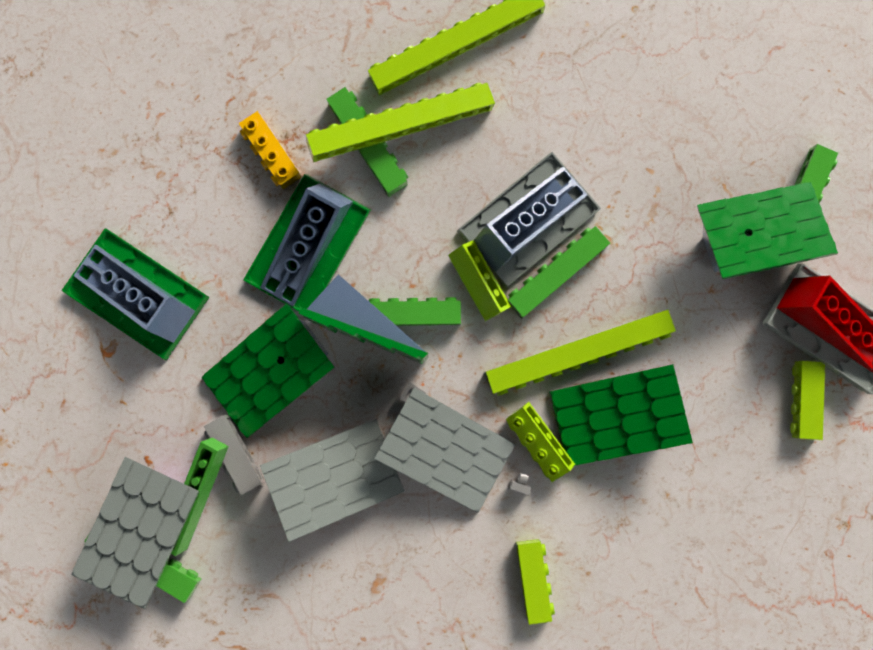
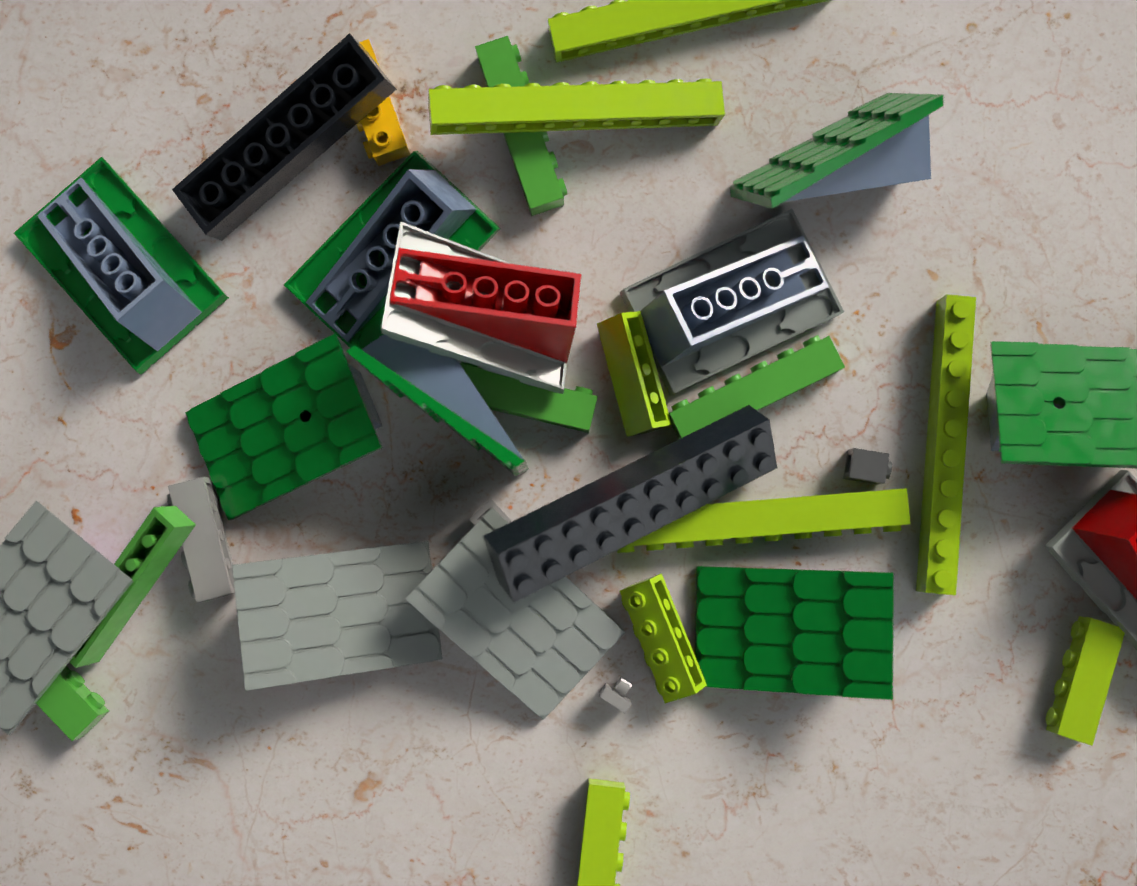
camera: 20 degrees right, 0 degrees up
(220, 188) = (284, 138): none -> black brick
(375, 264) = (482, 308): none -> piece
(499, 362) = (631, 502): none -> black brick
(591, 102) = (868, 149): none -> green piece
(640, 301) = (867, 466): none -> dark grey brick
(685, 276) = (946, 445): none -> lime brick

